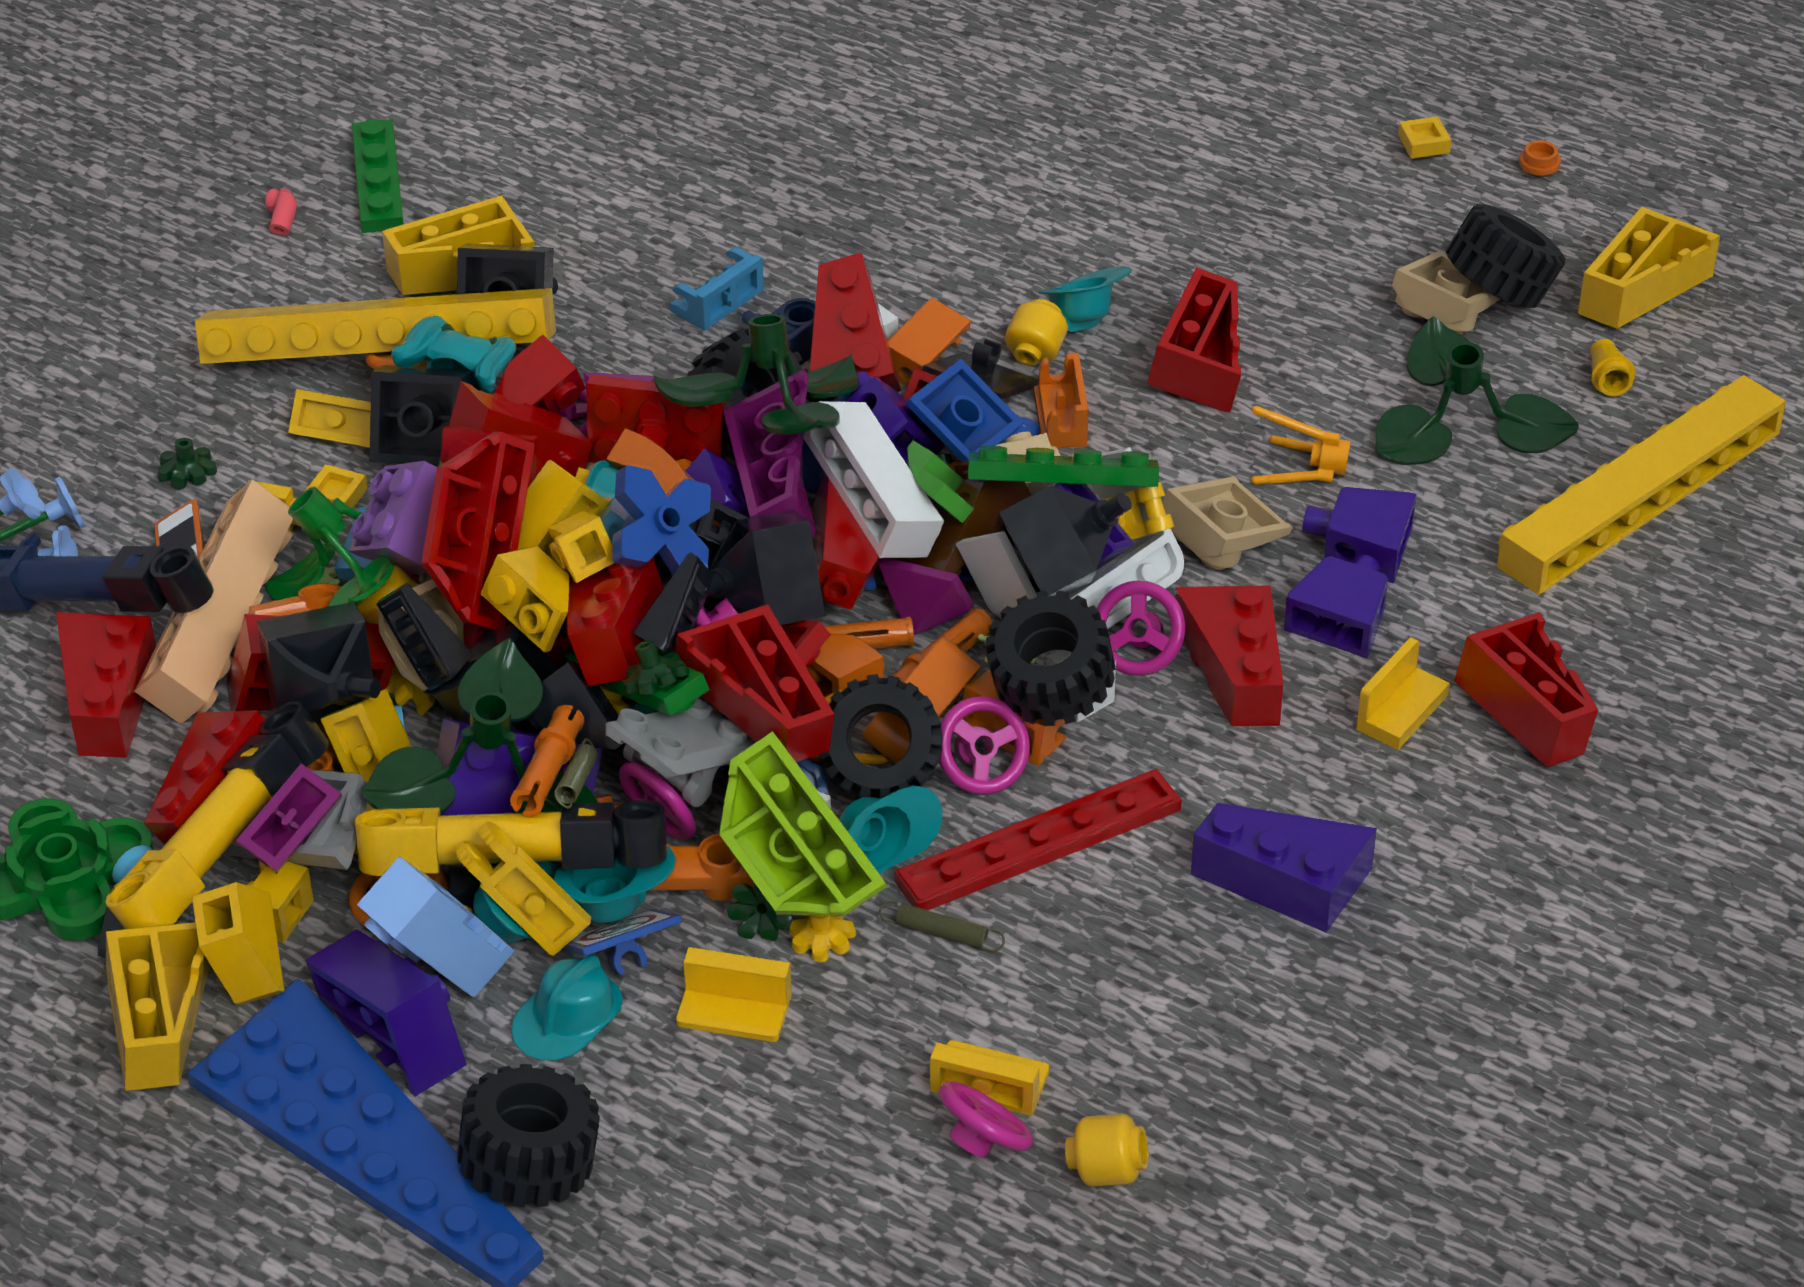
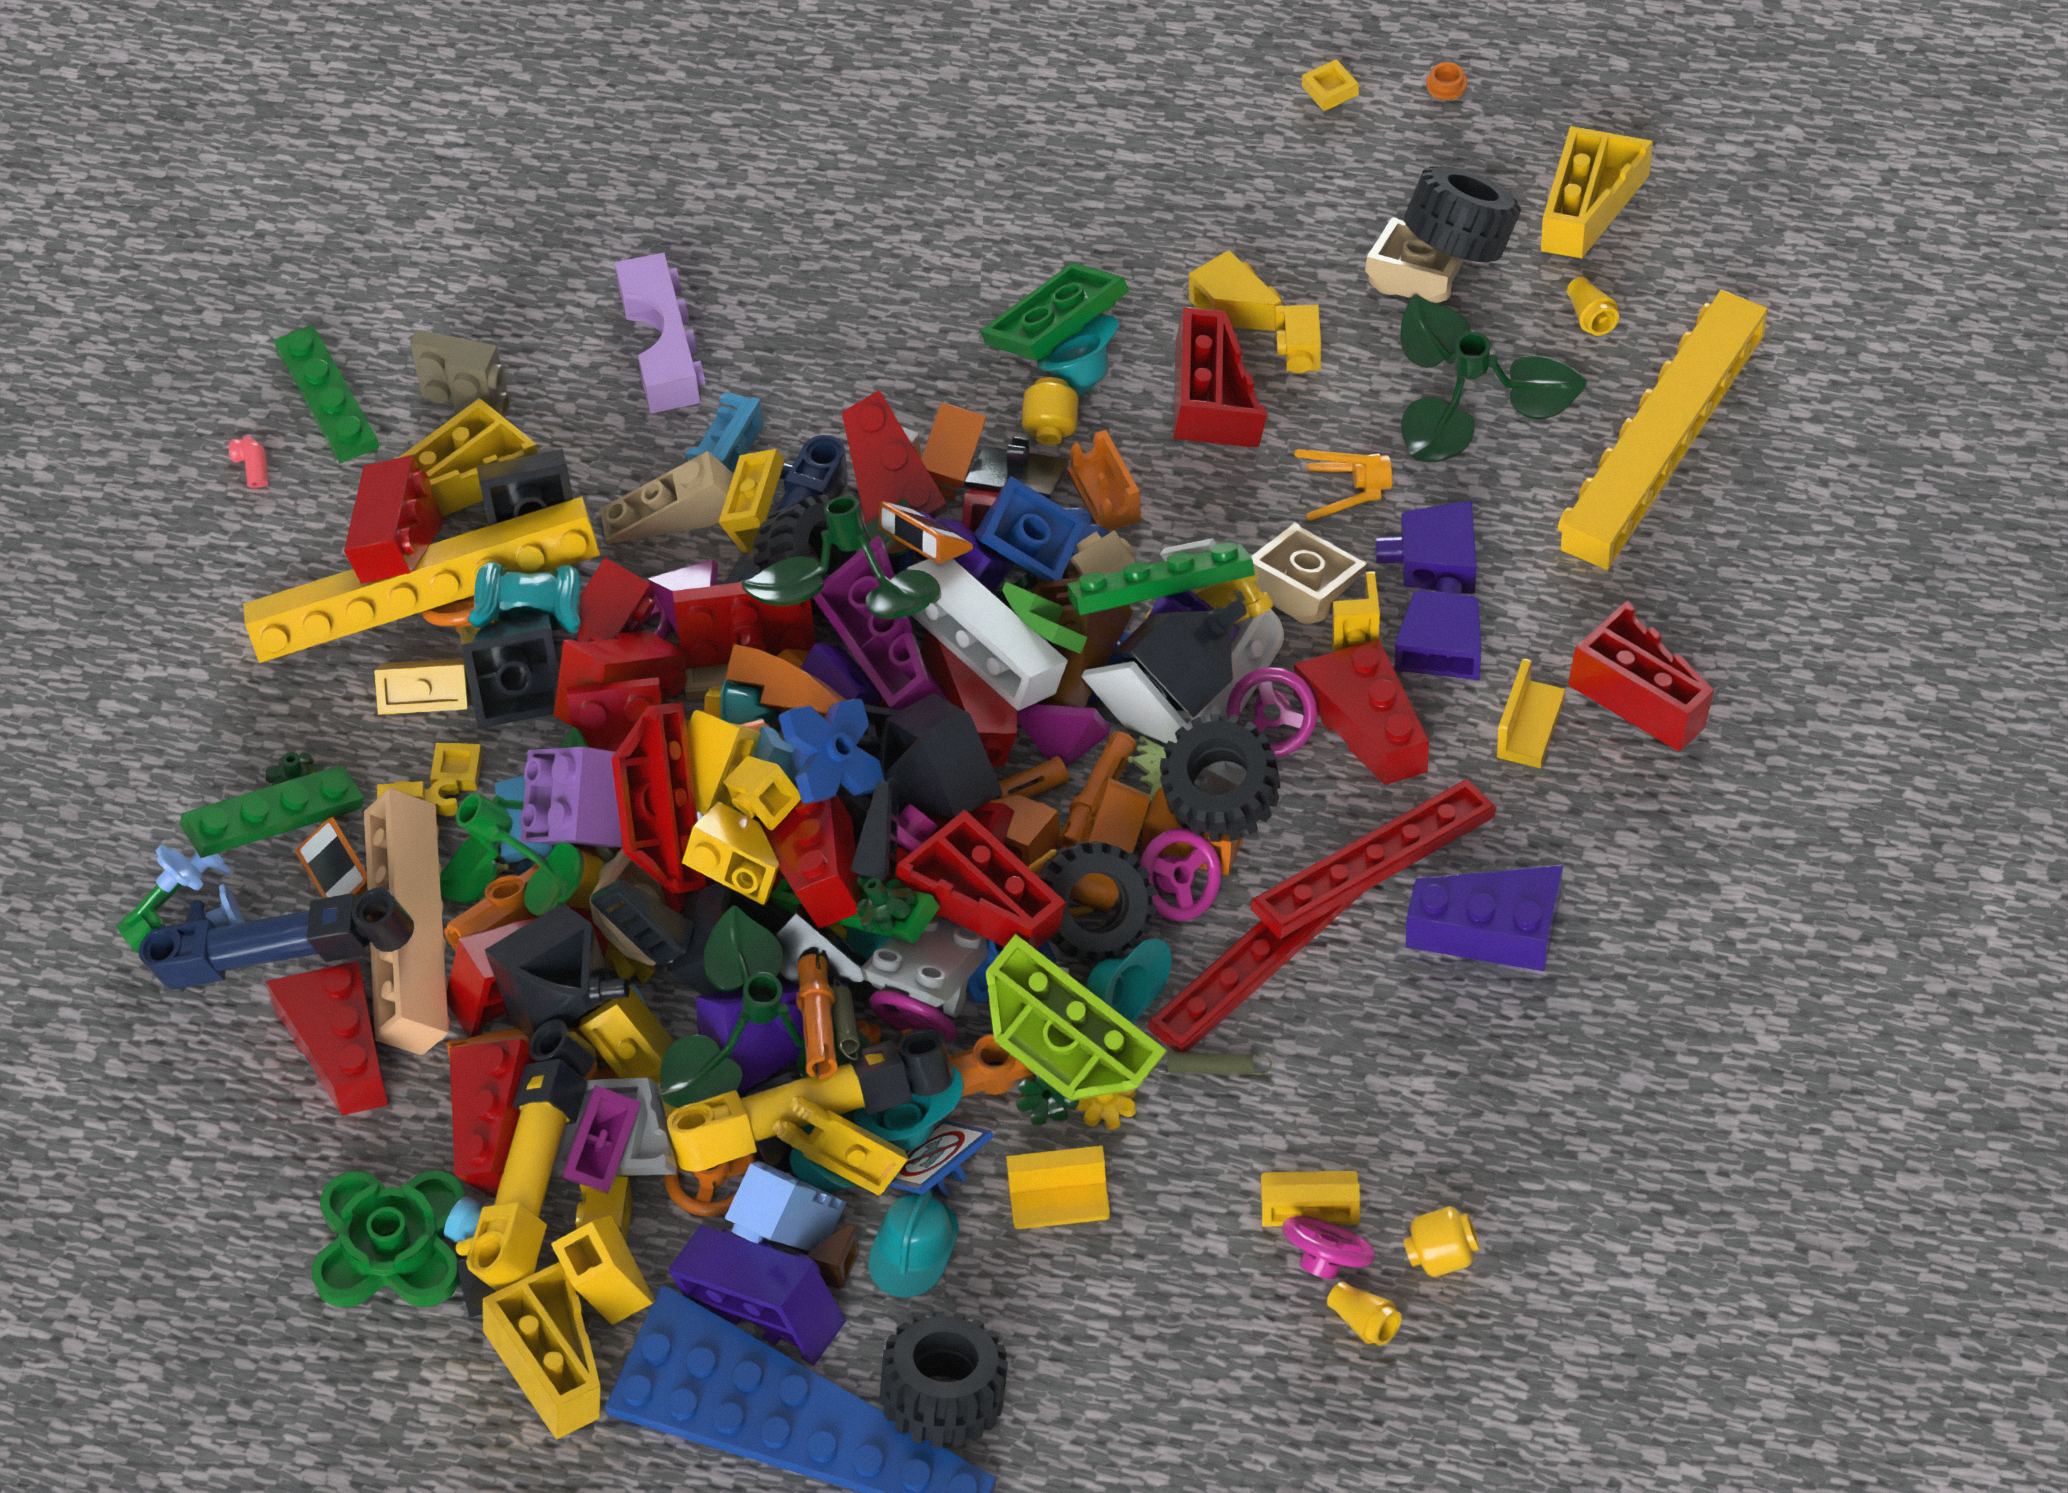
camera: 15 degrees left, 10 degrees up
(140, 478) = (271, 811): none -> green plate
(365, 263) = (391, 520): none -> red wedge
(479, 998) = (837, 1256): none -> reddish brown slope
(495, 169) = (459, 371): none -> dark tan plate
(655, 325) = (672, 503): none -> tan slope
(694, 221) = (667, 367): none -> lavender arch
(718, 321) = (750, 496): none -> yellow panel
(847, 379) = (921, 533): none -> slope
(1000, 1200) = (1368, 1315): none -> yellow cone
(1077, 254) = (1054, 311): none -> green plate
(1186, 781) = (1372, 858): none -> red tile
(1256, 559) = (1358, 619): none -> yellow panel
(1260, 278) = (1234, 288): none -> yellow slope
(1306, 327) = (1299, 337): none -> yellow brick

